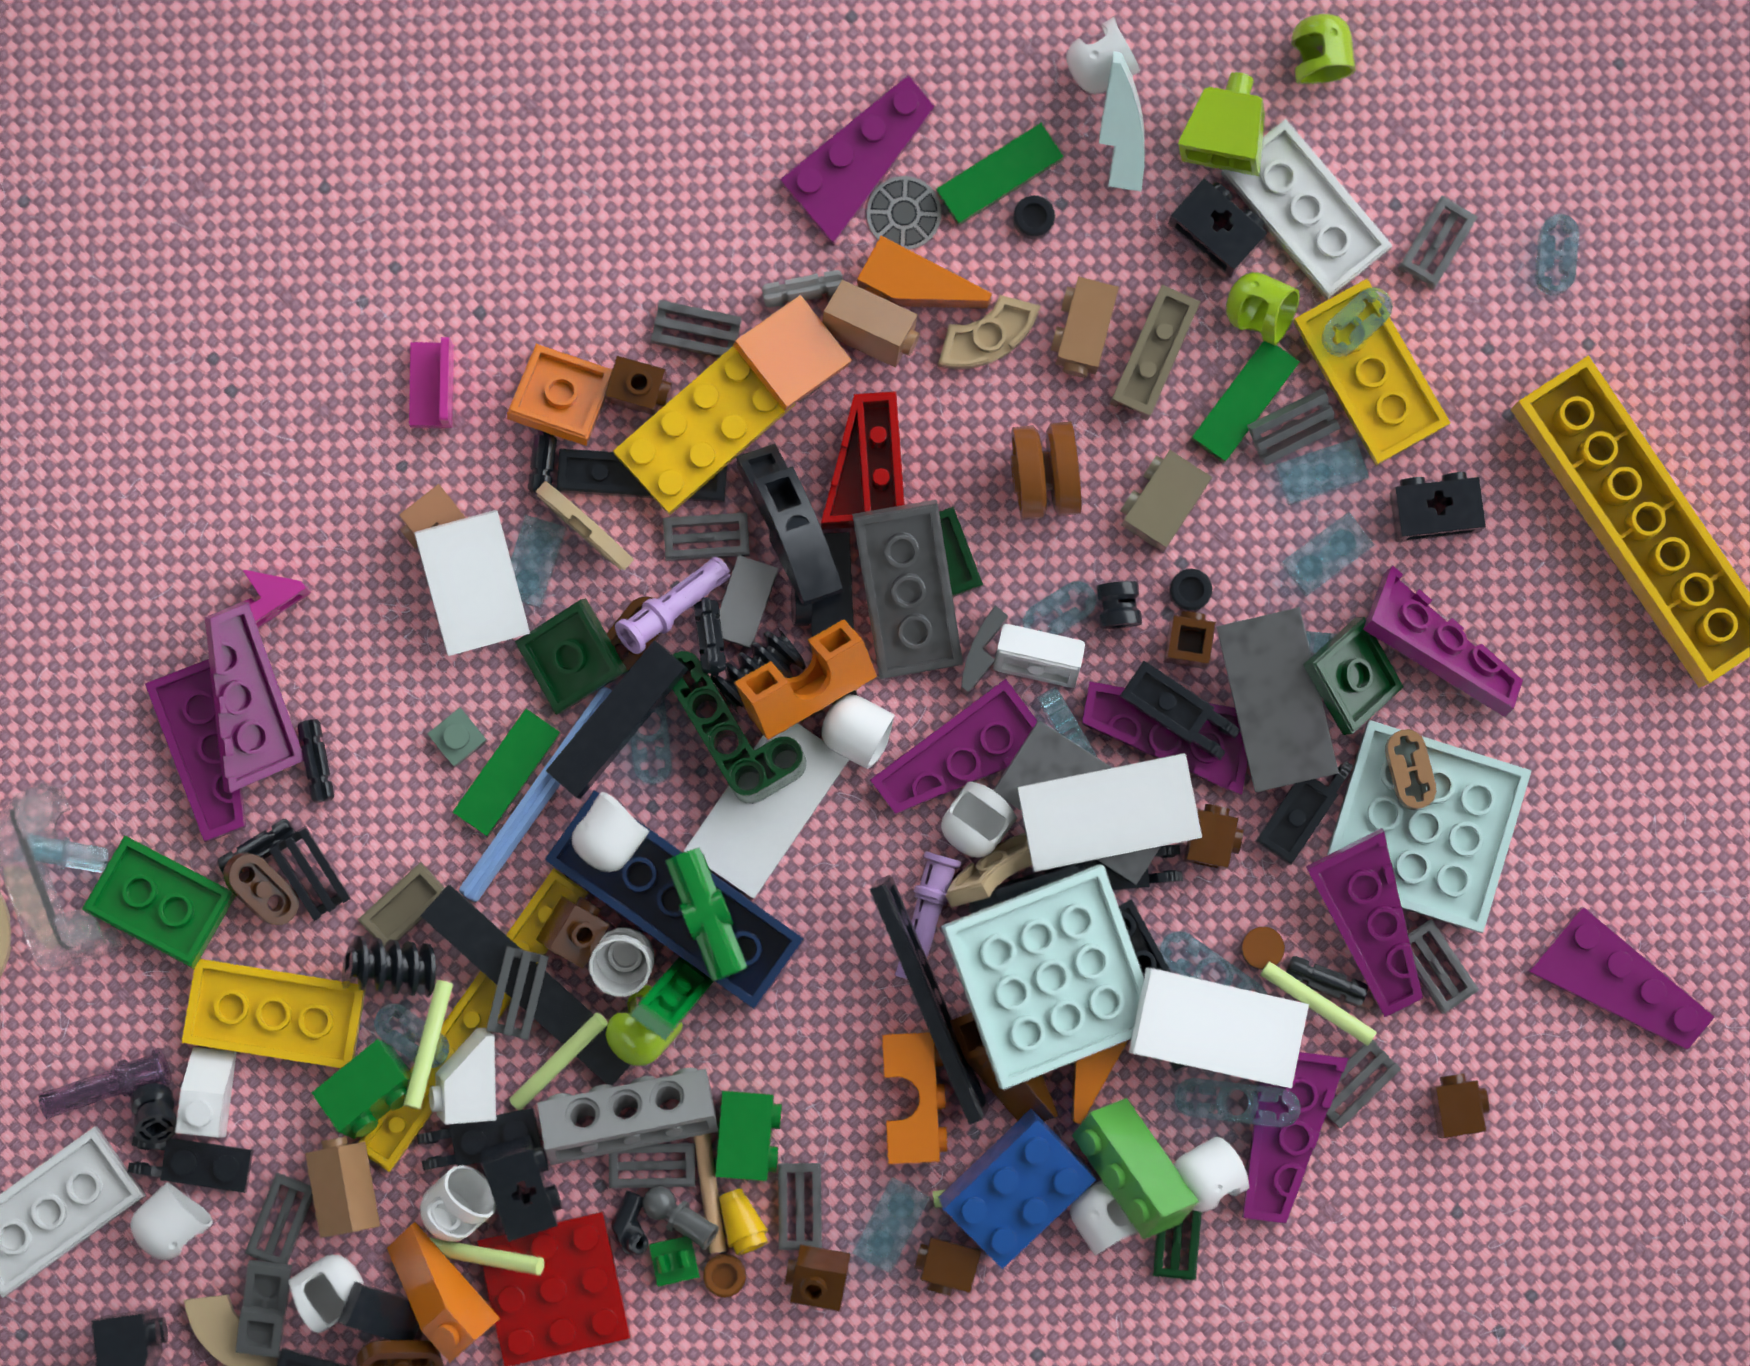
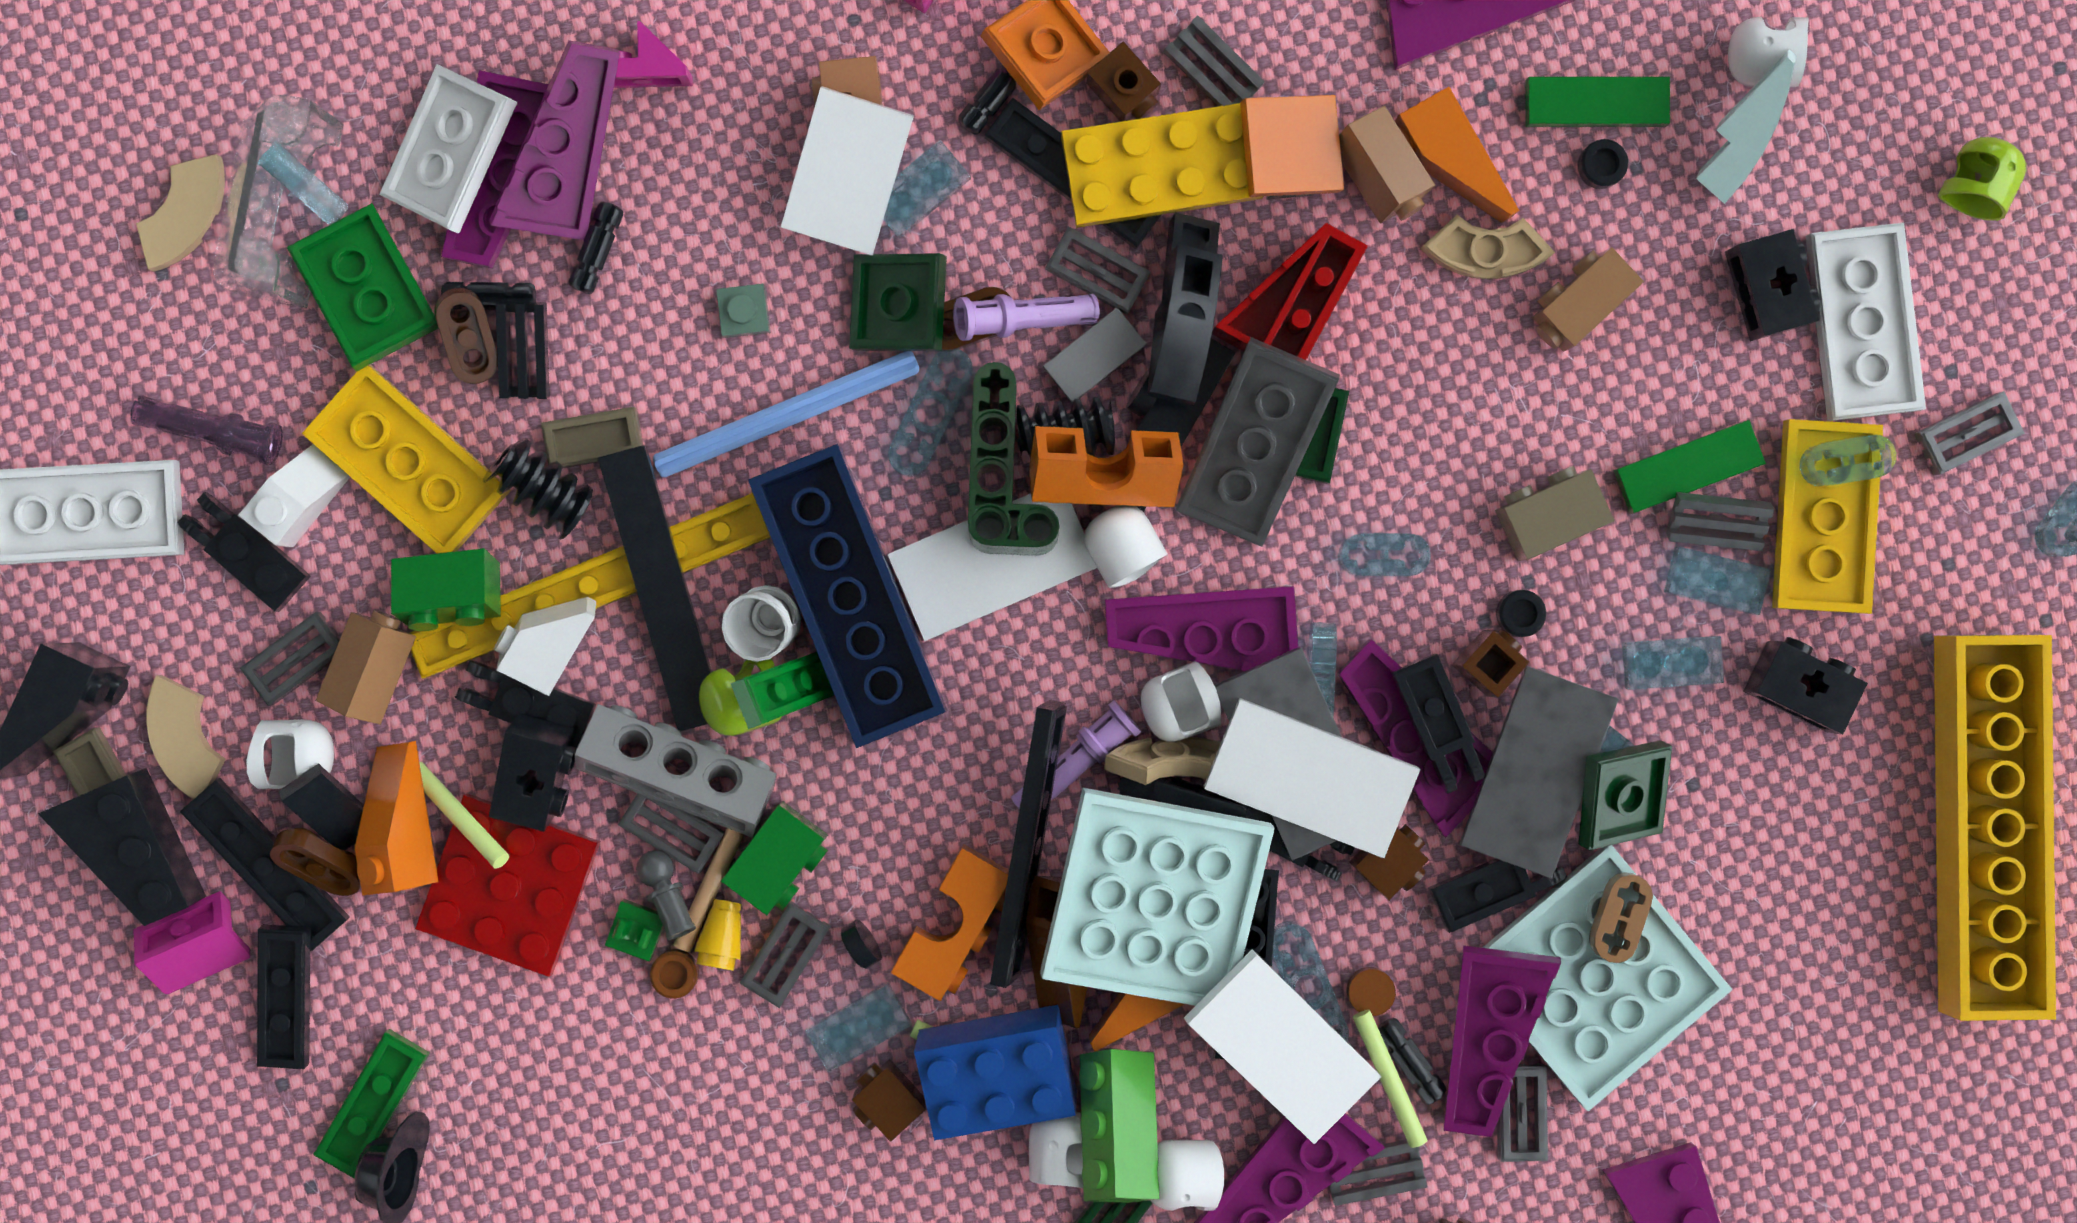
camera: 40 degrees right, 5 degrees up
(153, 1113) = (235, 479): black wheel -> none
(158, 757) = (448, 148): none -> white tile
(168, 1222) = (174, 596): white helmet -> none
(263, 1308) = (223, 732): dark grey slope -> none
(406, 1043) = (531, 561): clear light blue beam -> none
(428, 1044) = (528, 584): yellowish green bar -> none
(457, 1204) = (462, 751): white helmet -> none
(506, 772) = (768, 374): green tile -> none
(508, 1028) = (614, 618): dark grey tile -> none
(558, 1061) = (644, 677): yellowish green bar -> none
(573, 930) = (734, 564): reddish brown brick -> none
(584, 526) = (988, 186): tan tile -> none
(607, 835) = (821, 495): white helmet -> none
(617, 719) = (902, 390): black tile -> none
(627, 1227) = (612, 869): black arm -> none
(706, 914) = (866, 631): green piece -> none
(710, 636) = (1040, 367): black axle -> none
(808, 287) = (1348, 94): light grey axle -> none
(818, 1277) = (758, 1034): reddish brown brick -> none
(852, 1159) = (861, 944): none -> black tile
(904, 211) = (1483, 79): sticker -> none
(978, 660) = (1279, 551): dark grey slope -> none
(1039, 655) = (1339, 584): white slope -> none
(1047, 470) = (1461, 414): dark orange wheel -> none
(1119, 605) = (1446, 584): black wheel -> none
(1155, 351) = (1637, 366): dark tan container -> none
(1205, 1110) = (1219, 1108): clear light blue beam -> none
(1226, 128) = (1843, 195): lime torso -> none
(1262, 306) = (1767, 387): lime helmet -> none
(1439, 645) = (1724, 819): magenta wing -> none

